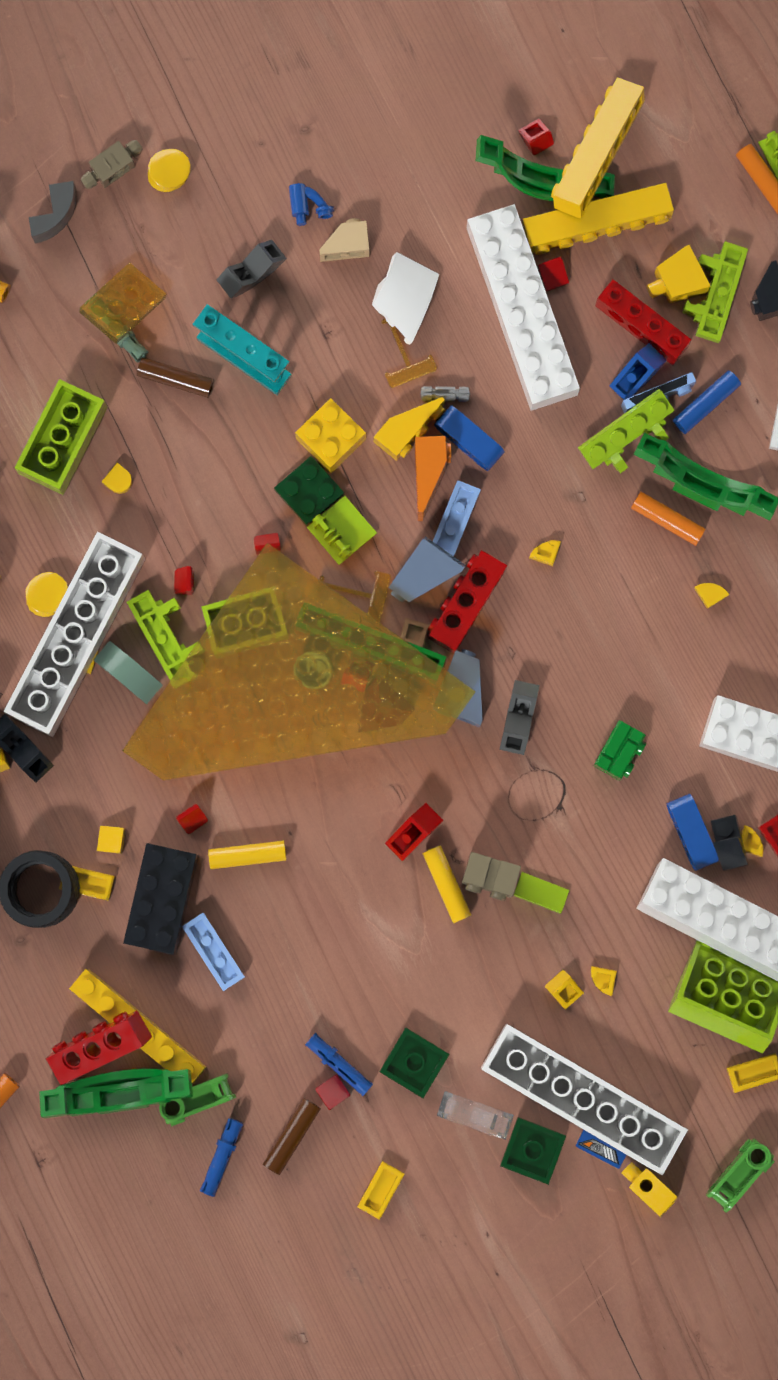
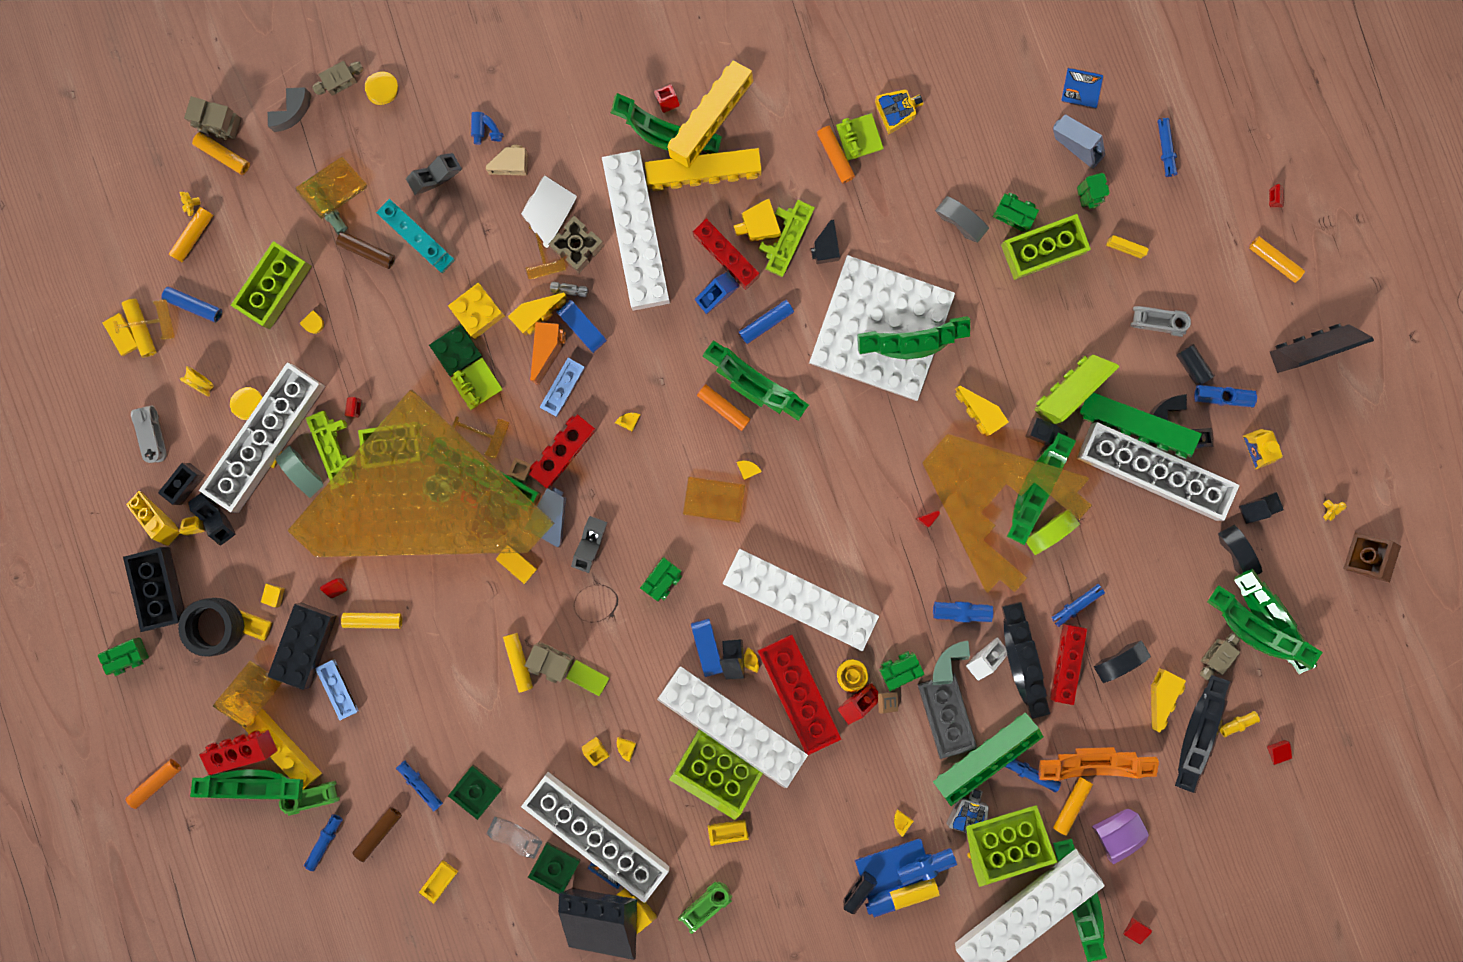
camera: 10 degrees right, 5 degrees up
(100, 970) = (247, 694): none -> clear yellow plate
(261, 540) = (419, 386): red slope -> none
(332, 1092) = (411, 805): red slope -> none
(414, 831) = (498, 619): red slope -> none
(424, 570) = (532, 423): sand blue slope -> none
(426, 757) = (517, 565): none -> yellow tile
(446, 320) = (576, 233): none -> dark tan brick
(553, 274) = (664, 207): red slope -> none
(606, 1211) = (599, 922): none -> black slope
(609, 442) = (715, 329): lime hinge -> none
(672, 639) = (714, 499): none -> clear yellow plate
(679, 386) = (730, 312): plate -> none

